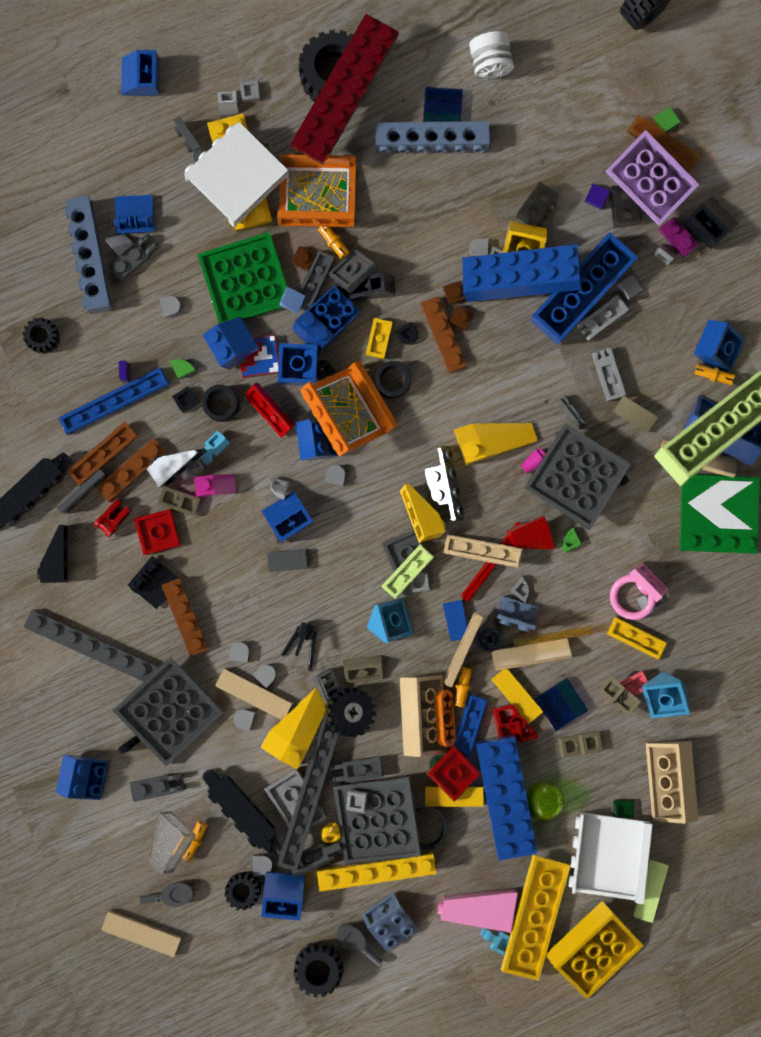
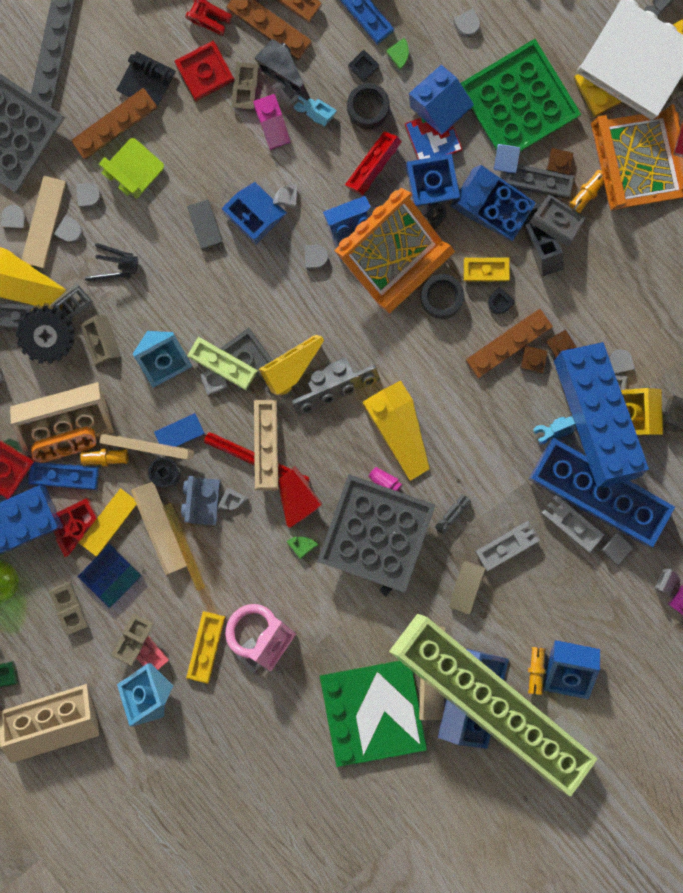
camera: 75 degrees right, 0 degrees up
(226, 610) = (132, 168): none -> lime bracket
(522, 310) = (559, 428): none -> medium azure plate

